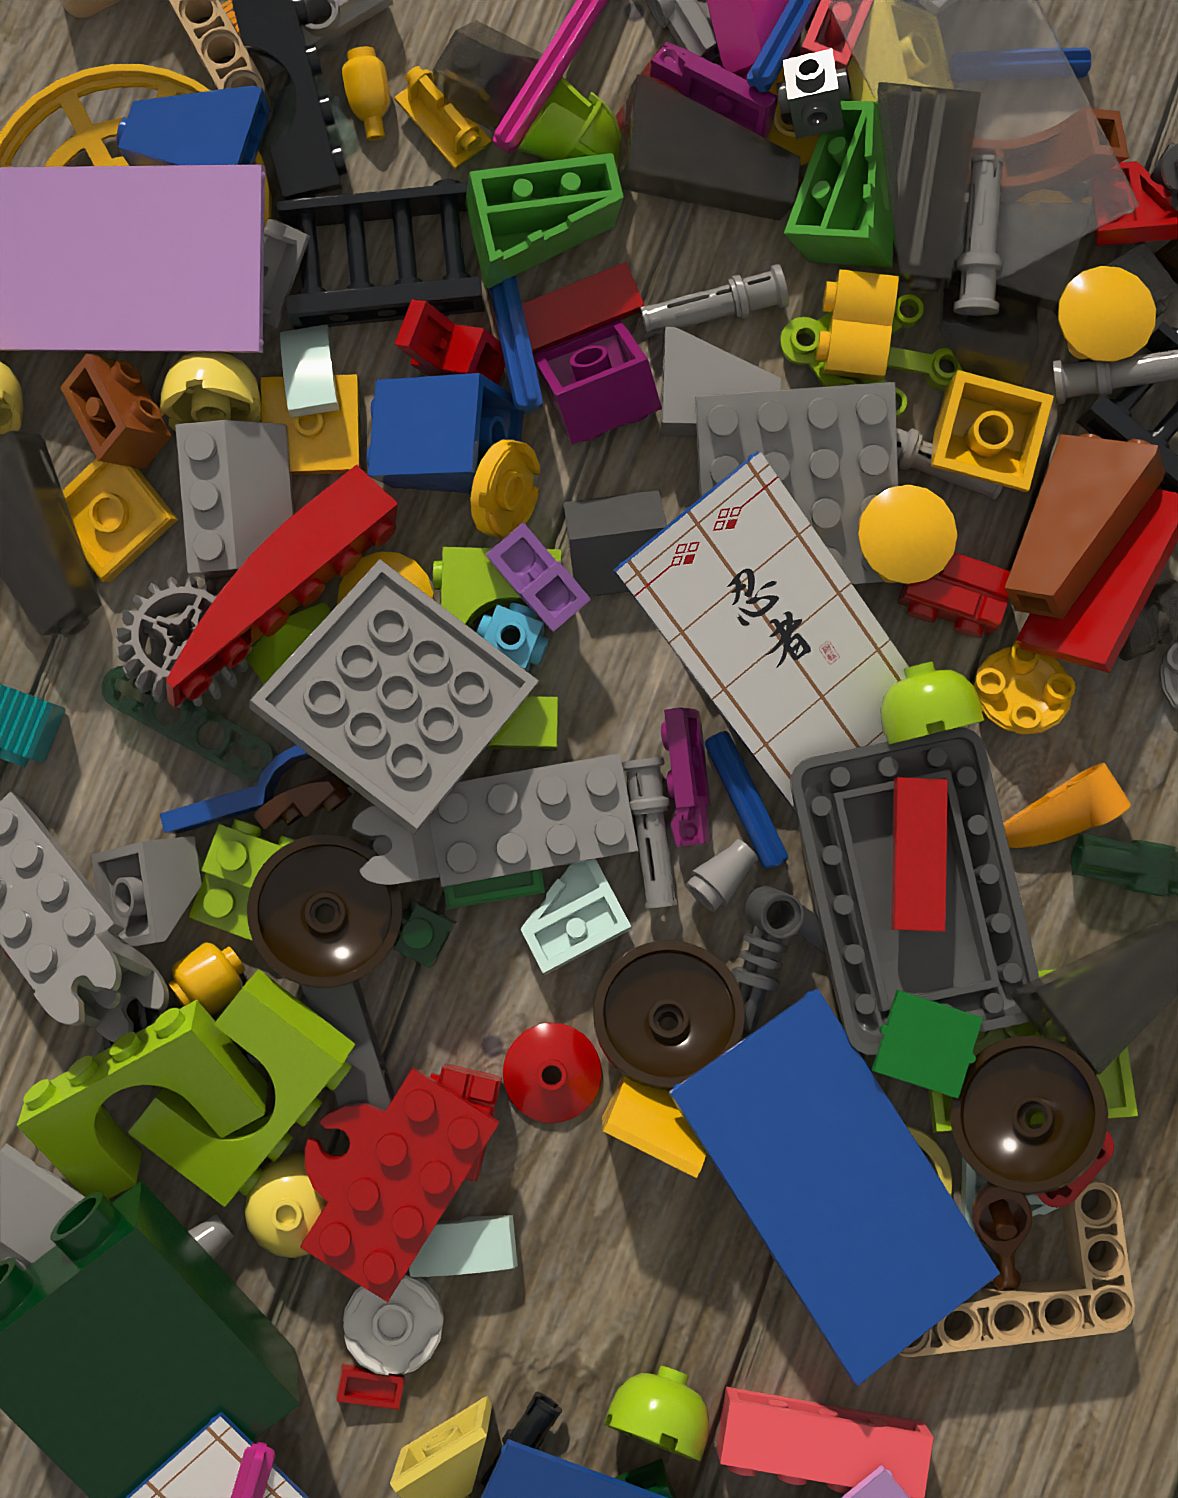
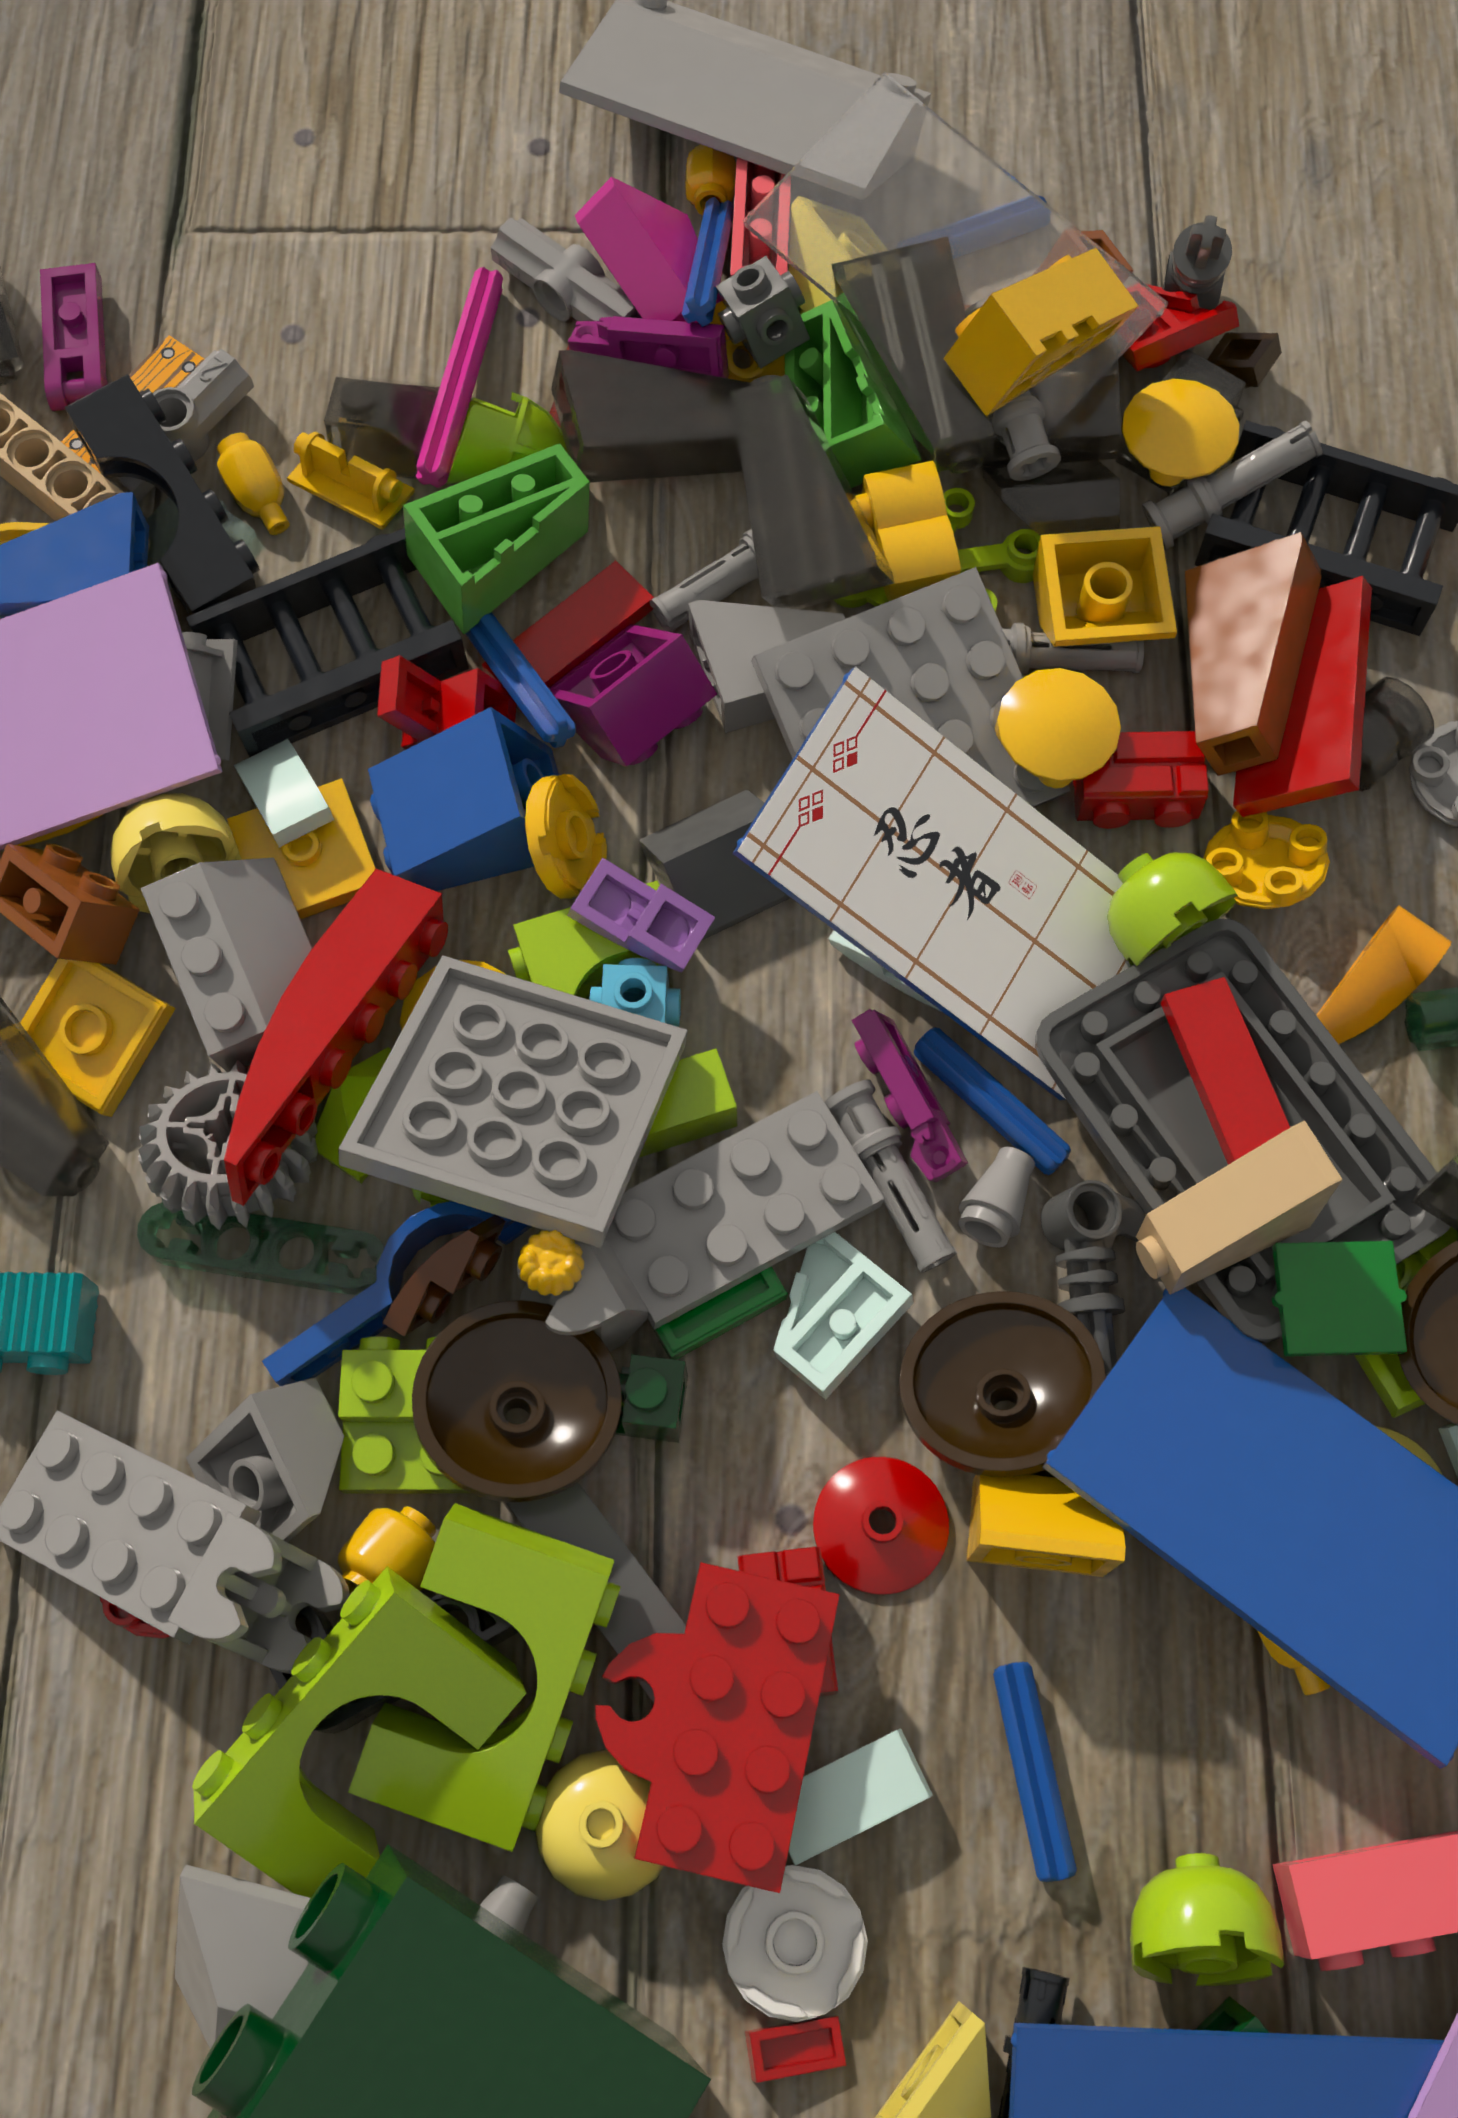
camera: 15 degrees left, 15 degrees down
(376, 830) = (550, 1263): none -> yellow piece
(591, 1273) = (1034, 1772): none -> blue axle
(780, 274) = (802, 511): none -> clear smoke slope
(876, 964) = (1238, 1210): none -> tan slope
(1021, 202) = (1038, 328): none -> yellow wedge

